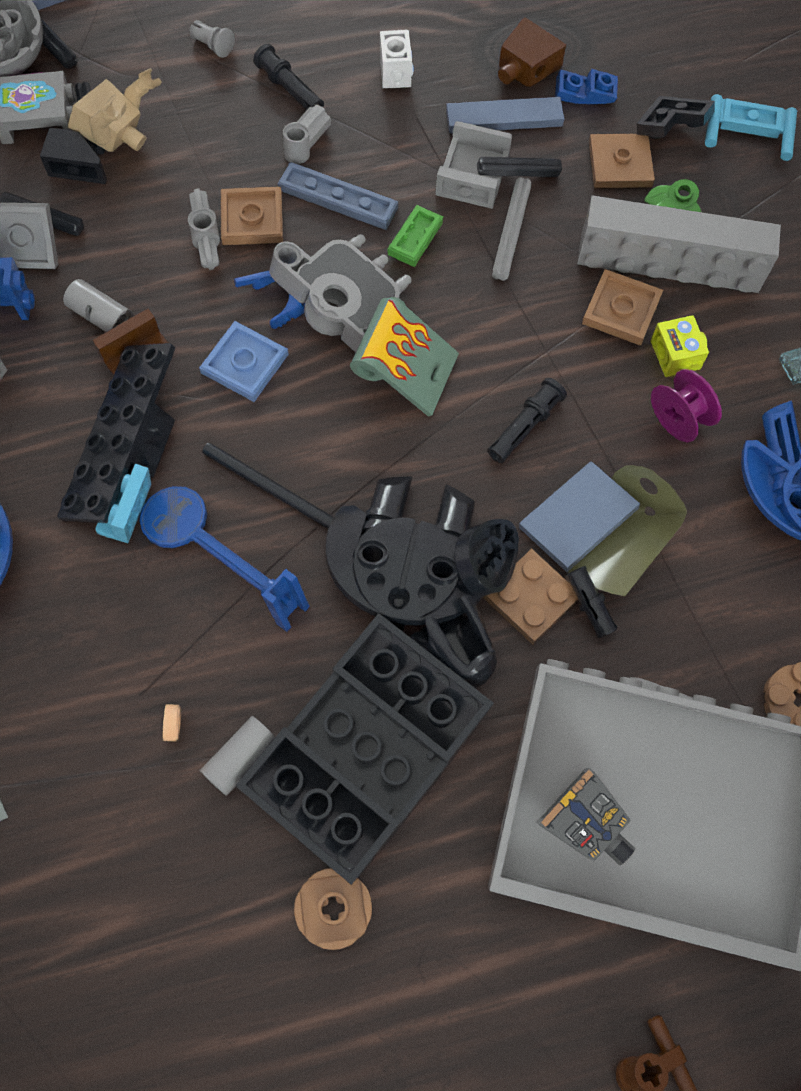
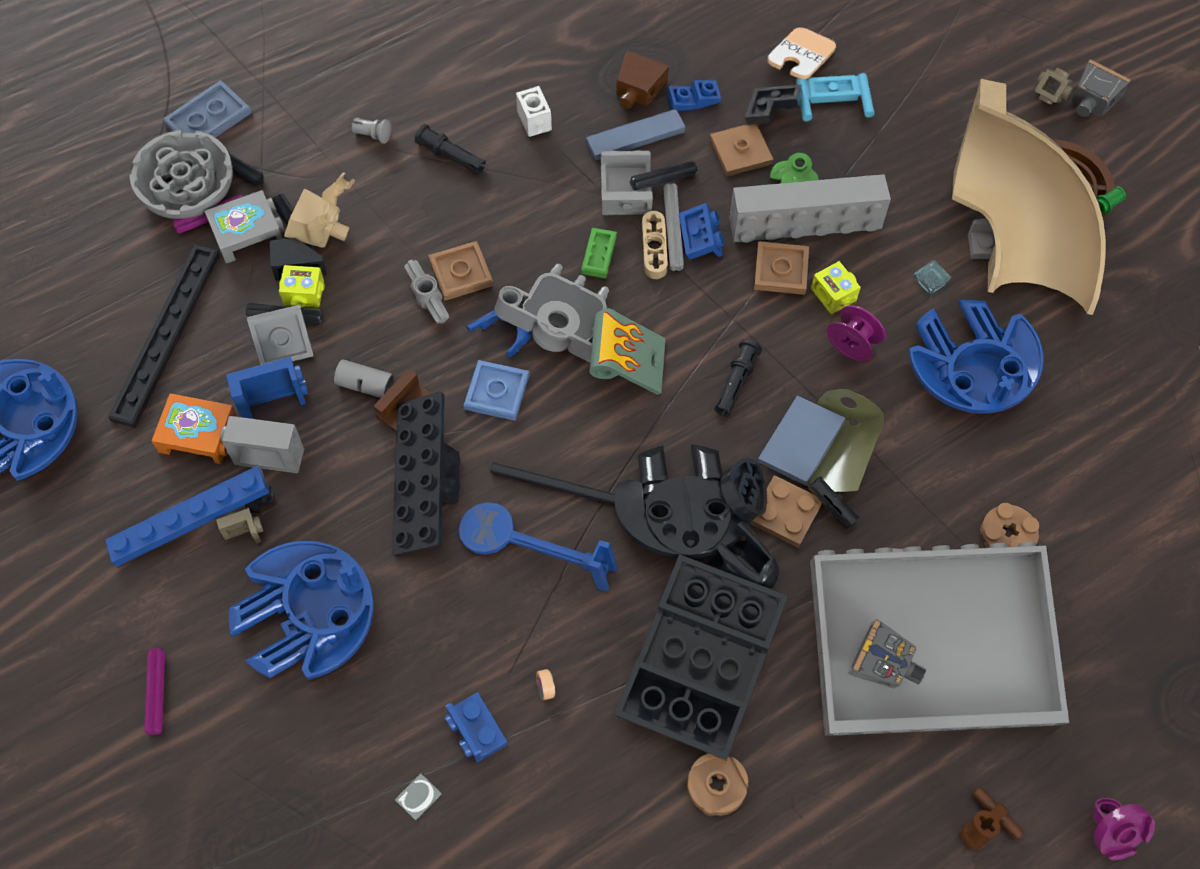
camera: 15 degrees left, 5 degrees down
(69, 187) = (301, 286): none -> neon yellow head
(72, 750) = (476, 726): none -> blue bracket
(128, 505) = (450, 530): medium azure bracket -> none
(237, 755) = (606, 693): light grey pin -> none
(303, 134) = (479, 192): light grey piece -> none
(338, 196) = (524, 235): sand blue tile -> none
(485, 254) = (649, 253): none -> tan beam
(542, 241) = (701, 231): none -> blue bracket
(734, 67) = (804, 48): none -> piece

